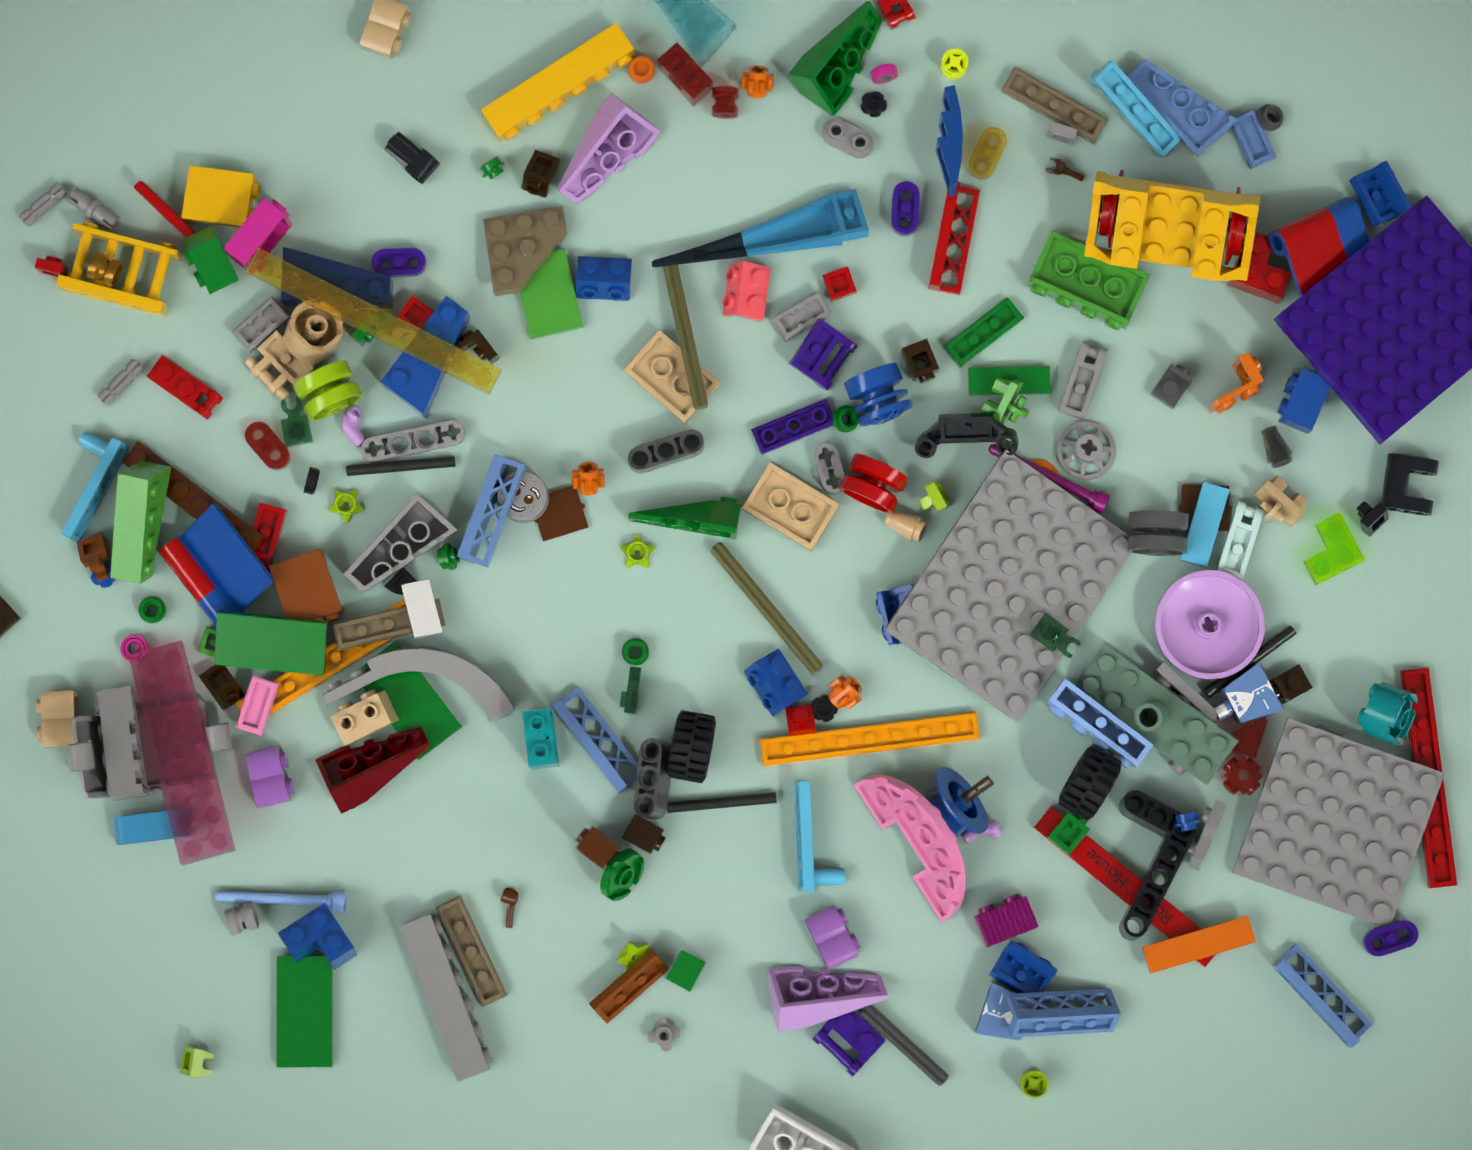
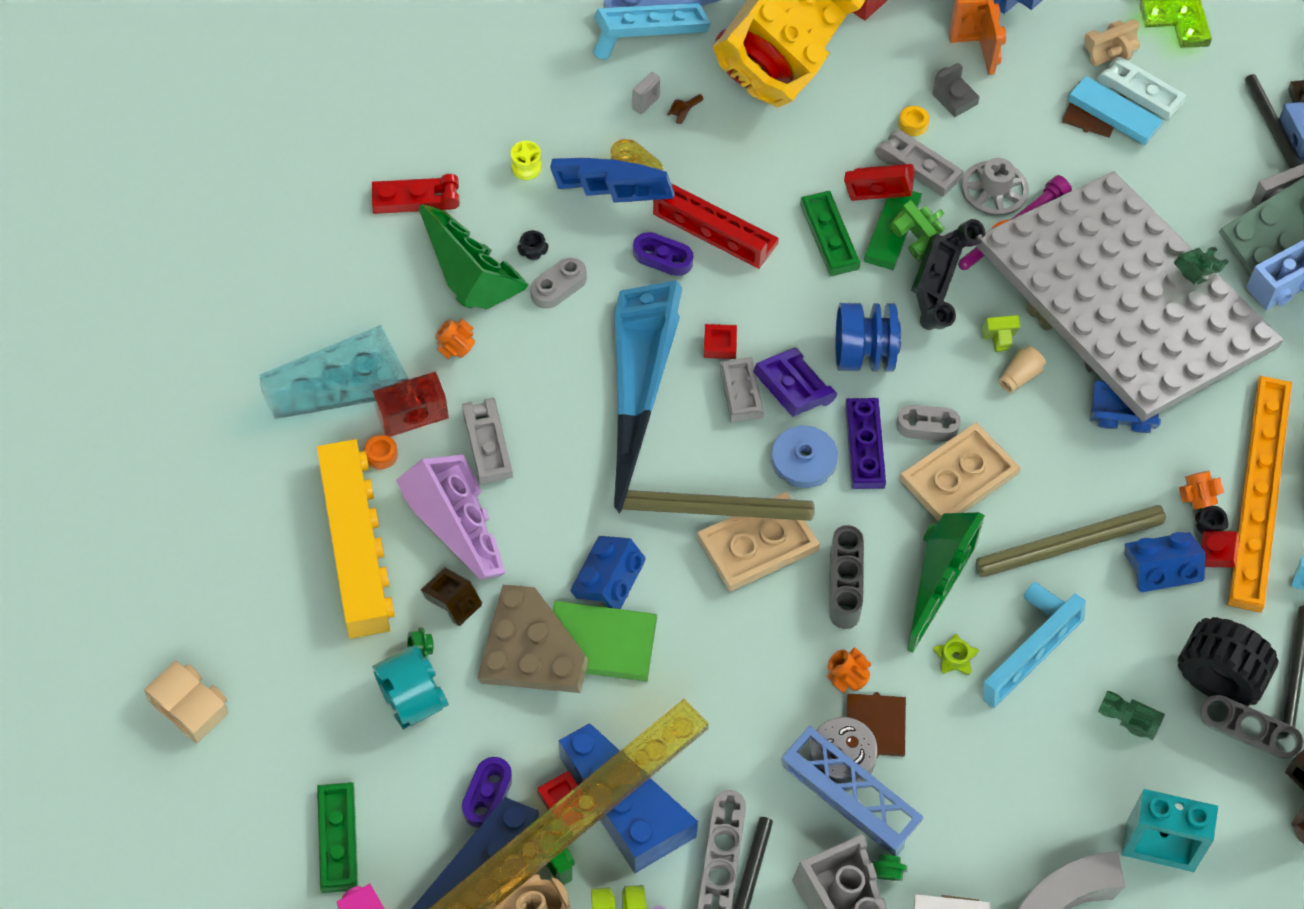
camera: 70 degrees left, 25 degrees down
(330, 175) = (337, 837): none -> green tile
(417, 162) = (372, 725): black piece -> none
(449, 175) = (409, 686): none -> teal brick
(483, 348) = (630, 728): dark brown bracket -> none
(589, 745) = (1189, 786): medium blue fence -> none
(635, 642) = (1084, 689): green plate -> none
(680, 143) = (487, 441): none -> light grey plate
(694, 621) = (1062, 621): none -> medium azure piece
(724, 102) = (463, 379): clear red wheel -> none
(746, 290) = (687, 434): coral bracket -> none
(762, 399) = (804, 470): none -> medium blue plate
(852, 419) = (877, 385): green plate -> none
(873, 483) = (968, 374): red wheel -> none
(884, 73) = (505, 222): dark pink tile -> none
(920, 351) = (837, 288): dark brown brick -> none
(1047, 355) = (880, 182): none -> red panel
(1053, 105) = (607, 97): dark tan tile -> none
(1086, 282) = (813, 123): bright green bracket -> none
(1129, 361) = (913, 120): none -> yellow tile
(1157, 531) = (1117, 141): dark grey wheel -> none
(1209, 624) = (1228, 134): lavender dish -> none
(1276, 448) = (1056, 28): clear smoke cone -> none

